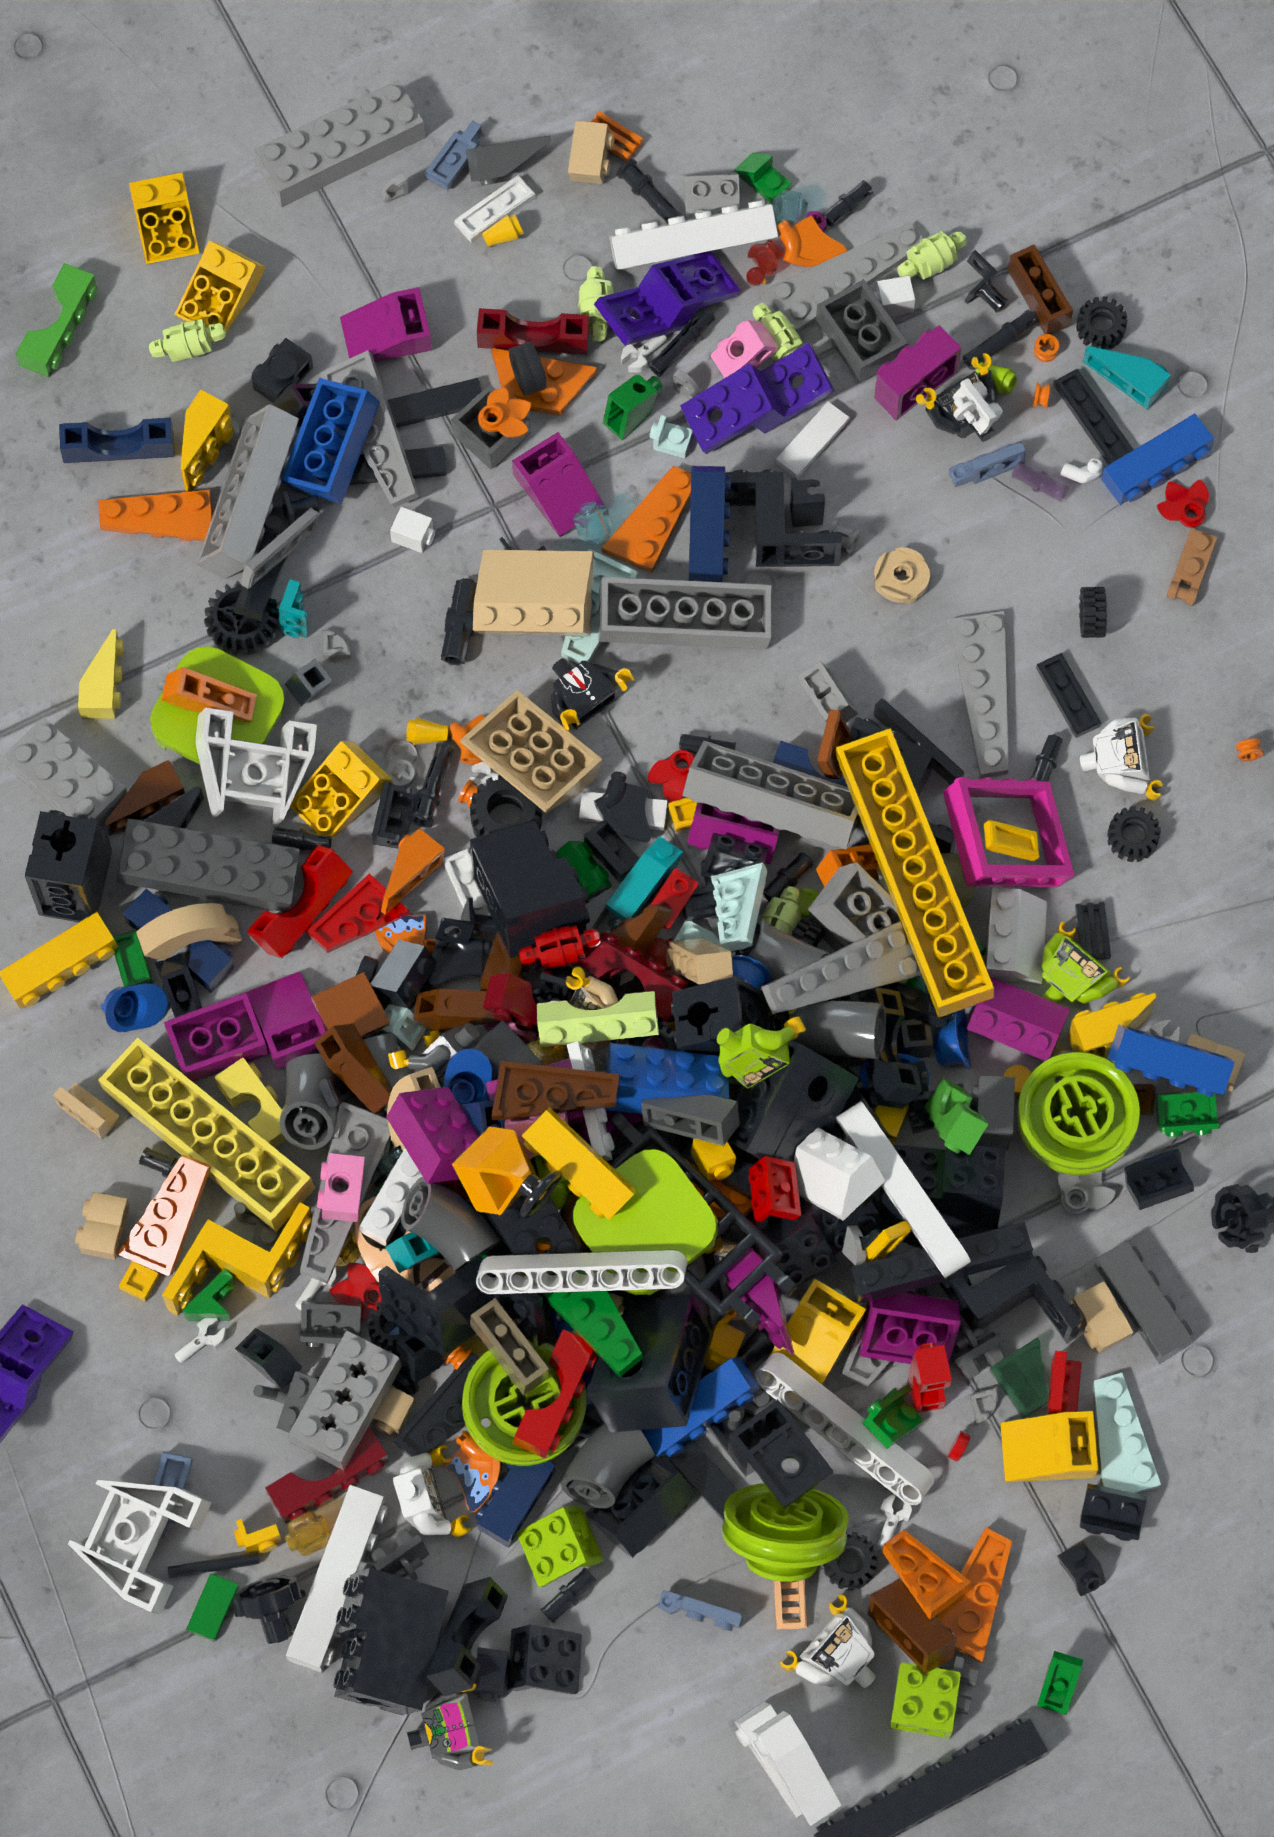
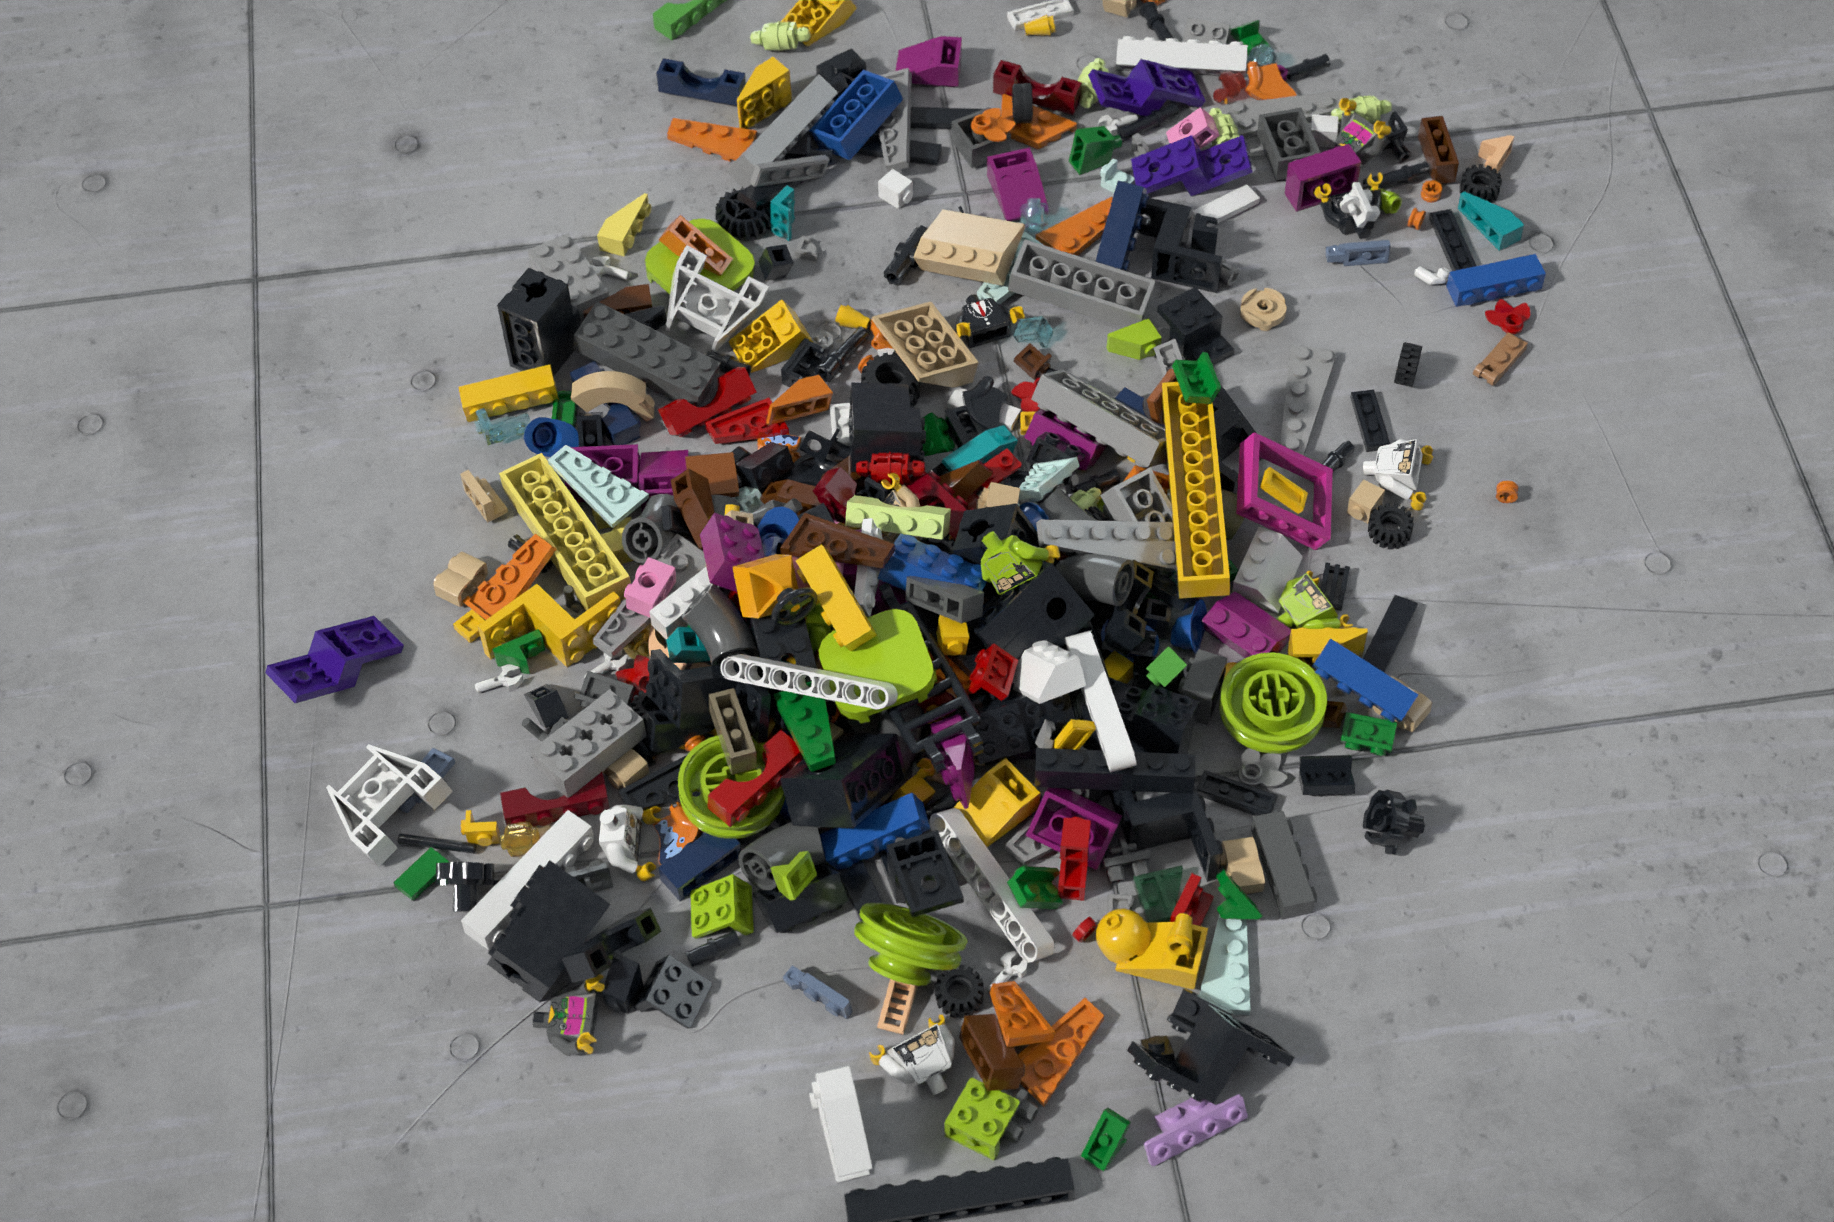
camera: 20 degrees right, 15 degrees down
(66, 1018) = (502, 430): none -> clear light blue bracket
(103, 745) = (604, 268): none -> white bar
(230, 1068) = (597, 486): none -> light aqua wing
(636, 1493) = (795, 876): none -> lime slope
(648, 685) = (1034, 329): none -> clear light blue bracket
(660, 730) = (1033, 361): none -> reddish brown bracket
(770, 666) = (1134, 340): none -> lime slope
(835, 634) = (1196, 326): none -> black bracket
(878, 738) = (1197, 379): none -> green bracket
(942, 299) = (1363, 137): none -> torso
(1003, 1443) = (1122, 935): none -> yellow cylinder
(1040, 481) = (1396, 274): clear purple pin -> none
(1068, 1229) = (1236, 794): none -> black tile
(1069, 1432) = (1180, 936): none -> yellow cone
(1097, 811) = (1365, 500): none -> tan brick
(1107, 271) = (1496, 151): none -> light nougat slope
(1109, 1365) = (1237, 902): none -> green slope
(1139, 1634) = (1191, 1124): none -> lavender bracket
(1141, 1559) = (1209, 1055): none -> black bracket
(1172, 979) = (1390, 632): none -> black tile

